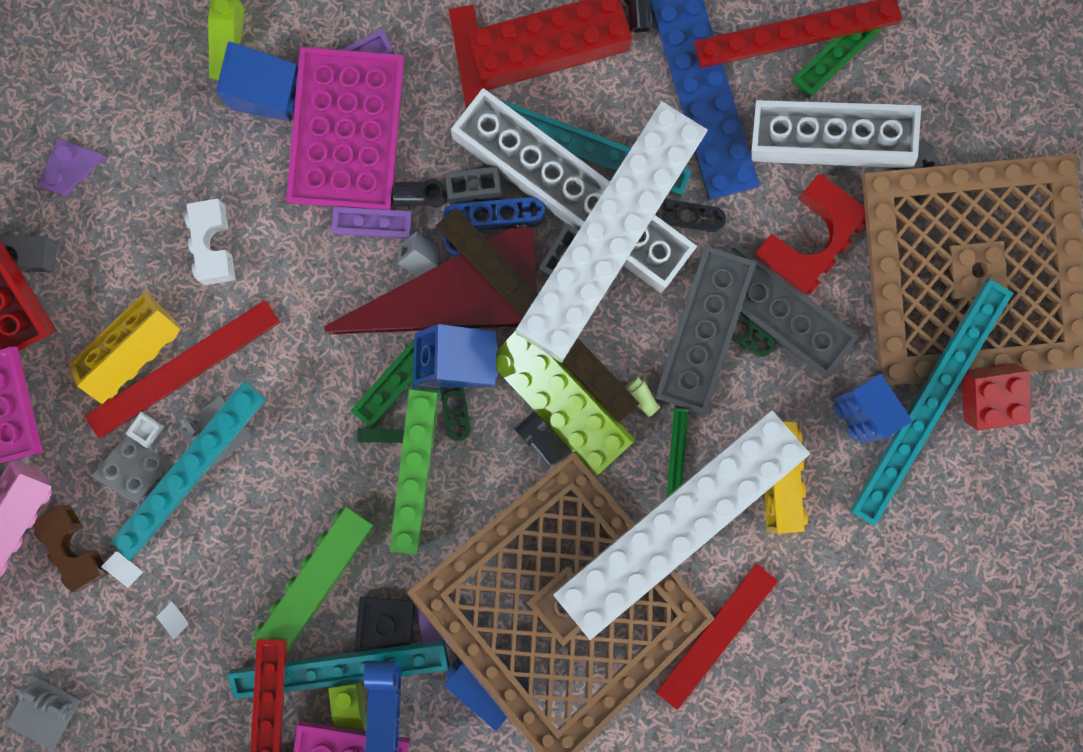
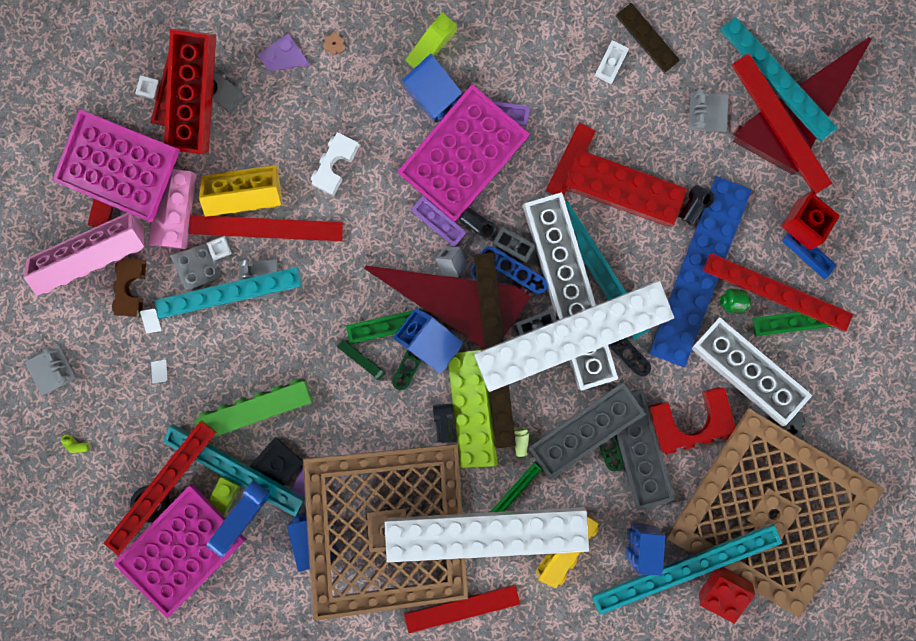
camera: 30 degrees right, 5 degrees up
(62, 424) = (172, 218): none -> bright pink slope
(112, 111) = (334, 38): none -> nougat plant
(414, 469) = (358, 388): bright green brick -> none
(760, 75) = (735, 301): none -> green head

